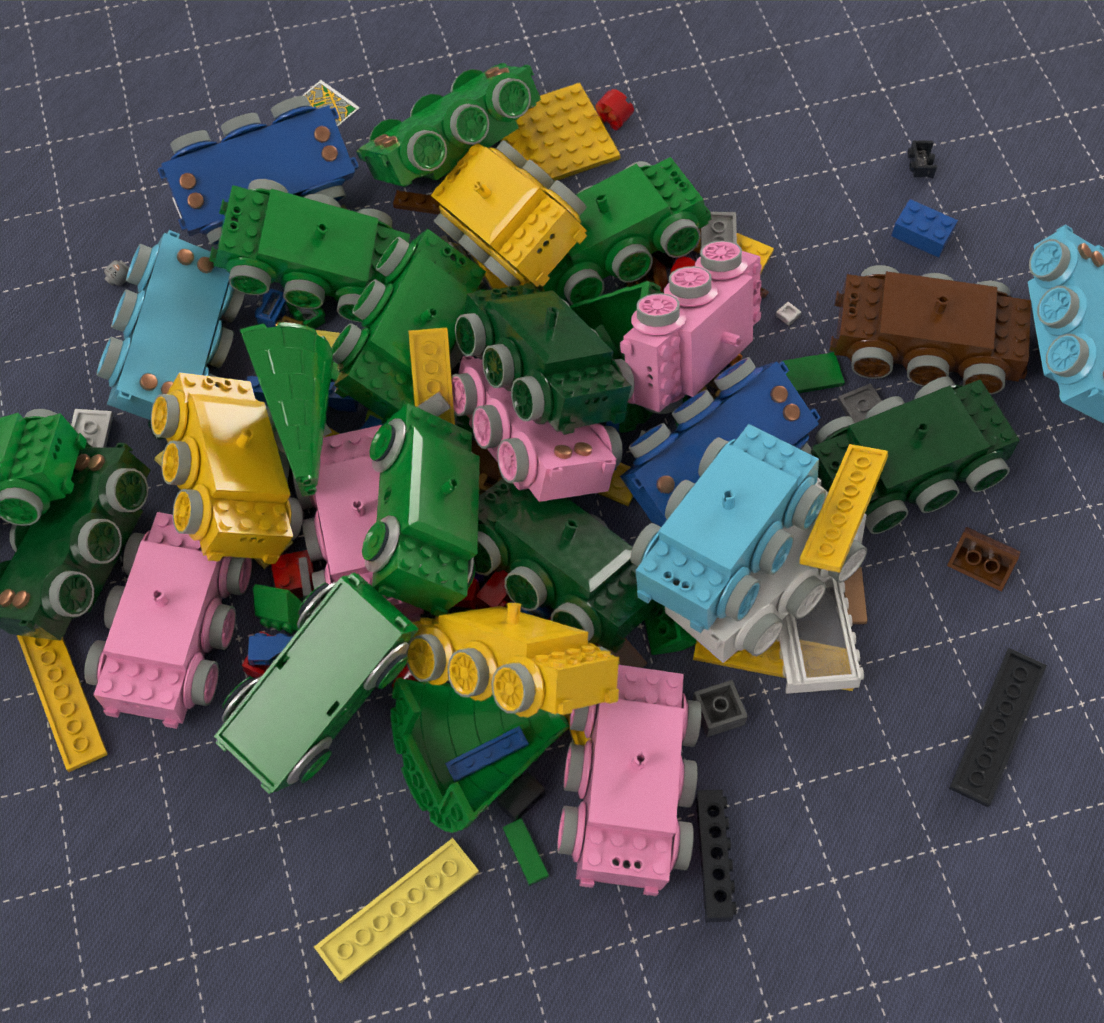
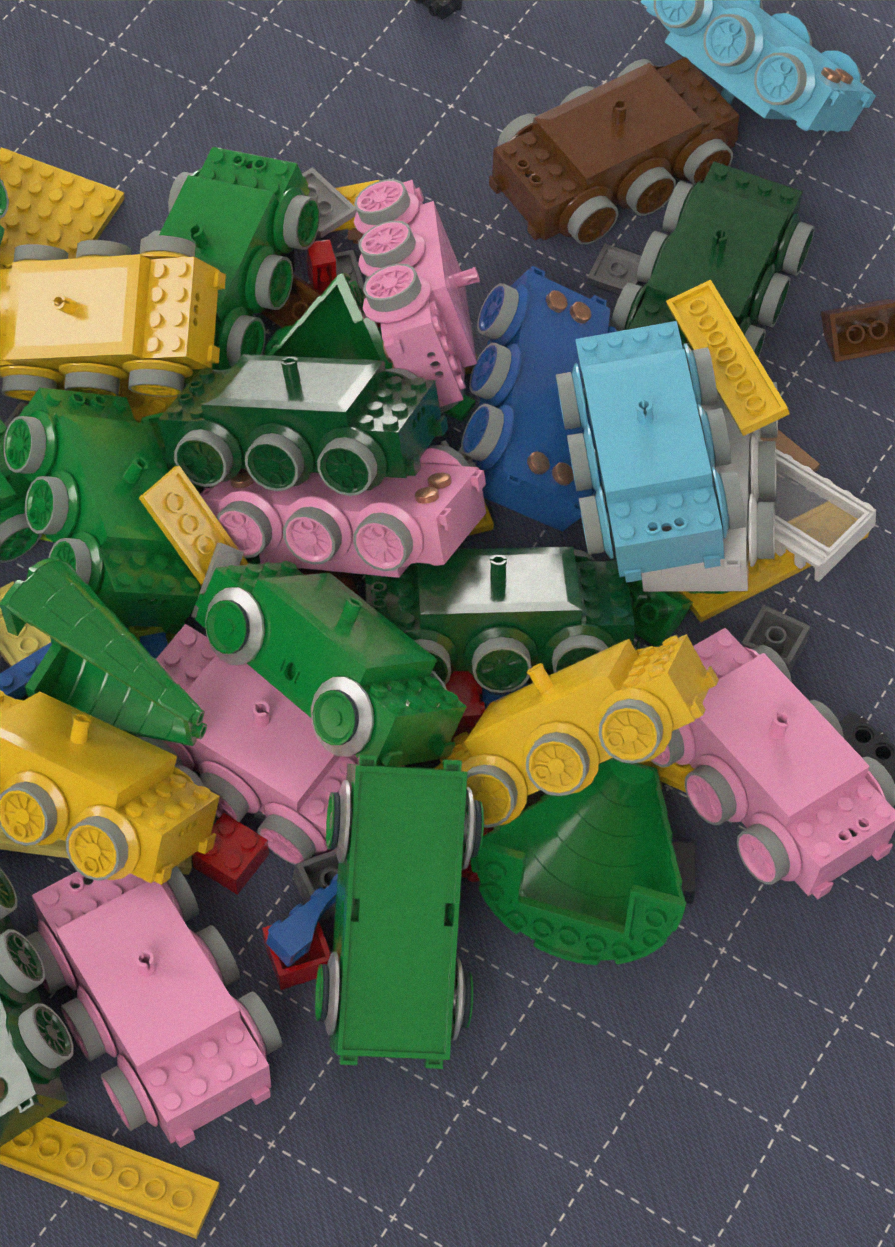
camera: 45 degrees left, 5 degrees down
(276, 608) = (262, 889): green slope -> none
(305, 580) = (258, 839): flat silver tile -> none
(396, 910) = (669, 1073): light yellow plate -> none
(486, 754) = (605, 861): blue tile -> none
(525, 852) = (730, 919): green tile -> none
(614, 109) = (73, 147): red brick -> none
(788, 313) = (457, 233): white tile -> none
(814, 372) = (545, 257): green tile -> none
(924, 228) = (506, 61): blue brick -> none

